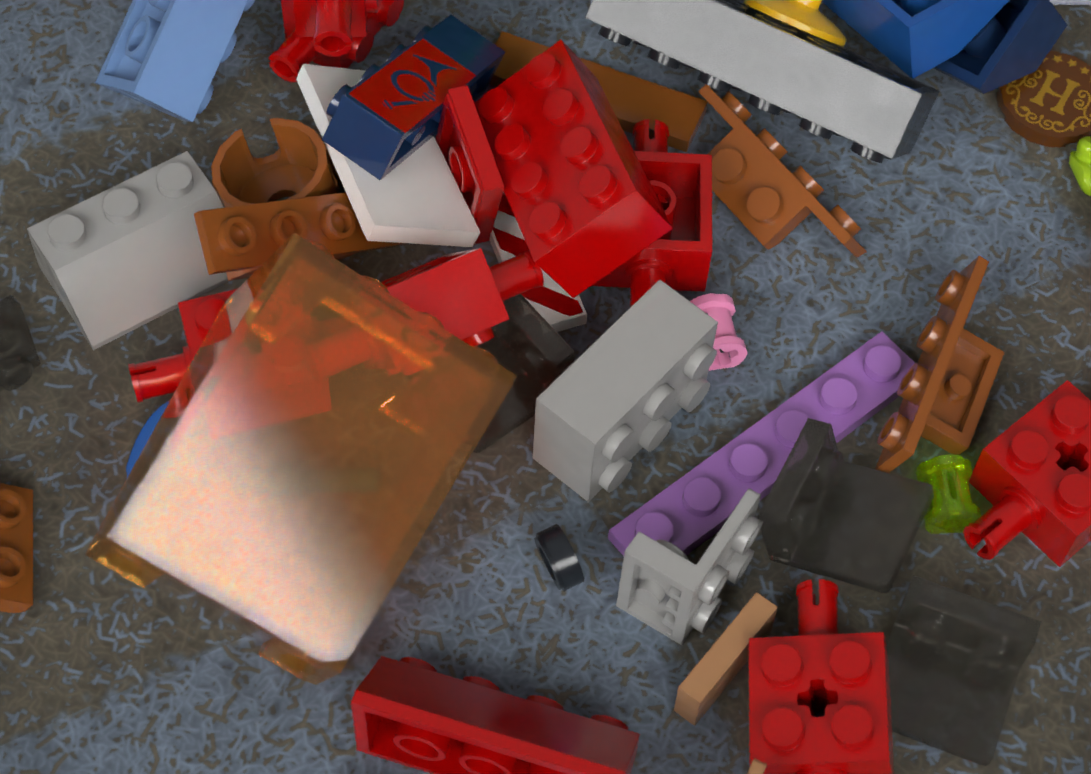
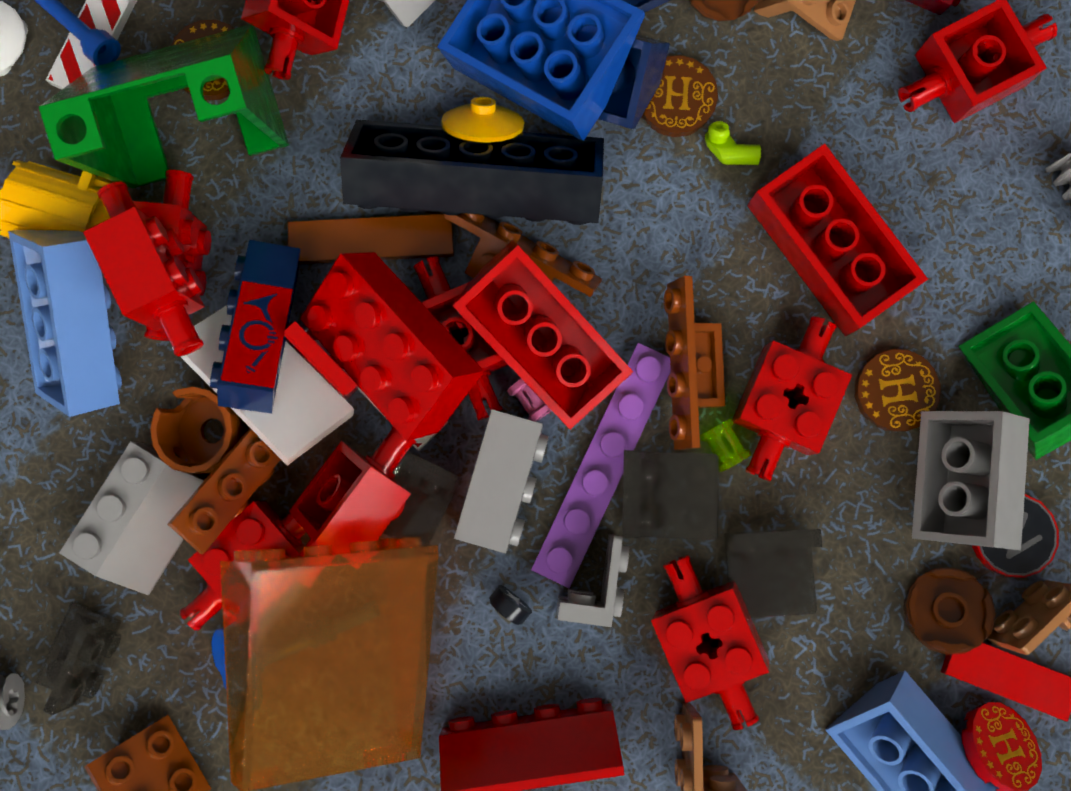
camera: 20 degrees left, 25 degrees up
(724, 659) = (638, 626): medium nougat tile -> none
(765, 244) = (541, 335): none -> red slope

